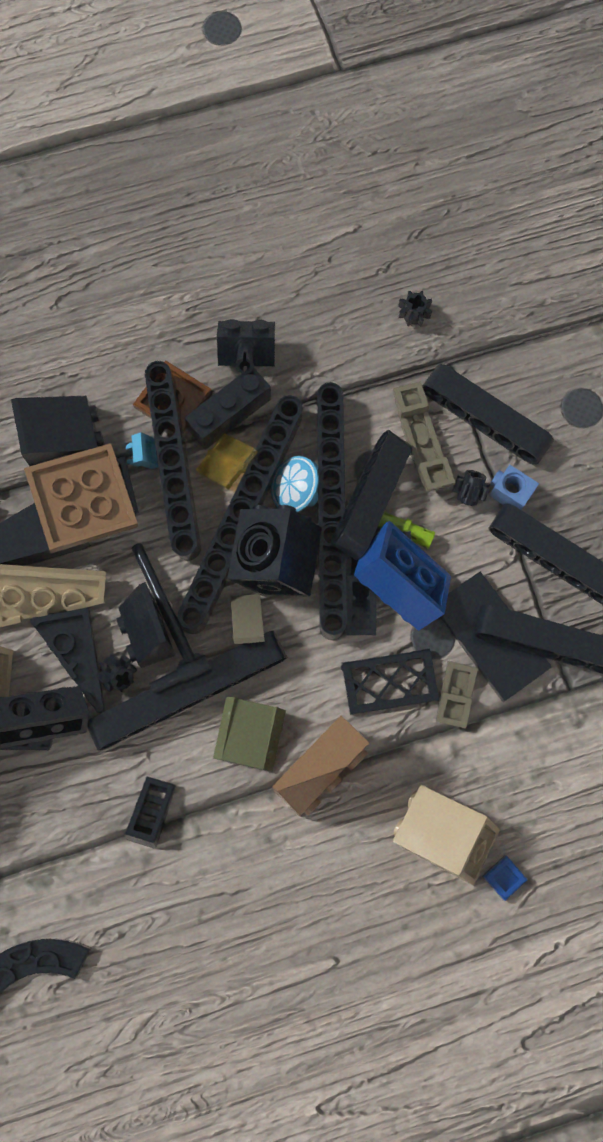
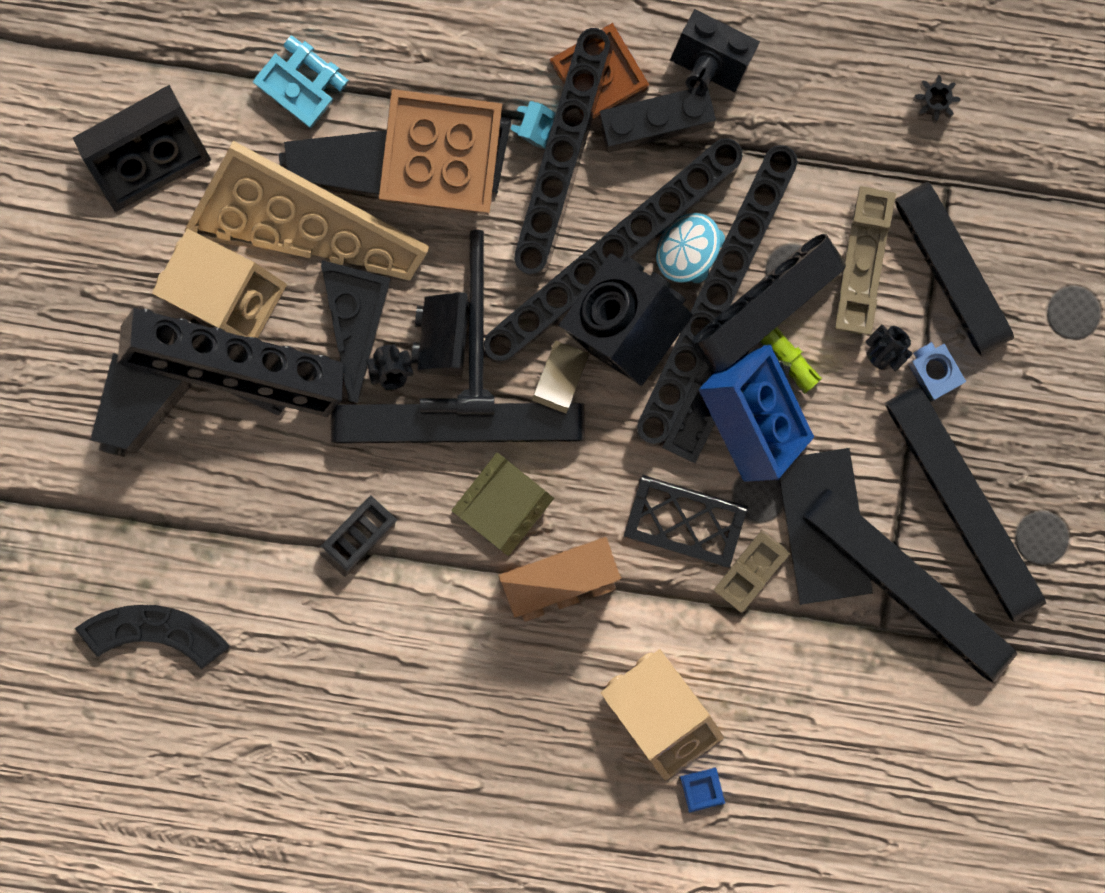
camera: 25 degrees right, 10 degrees up
(55, 427) = (449, 55): black slope -> none
(226, 461) = (624, 182): clear yellow piece -> none

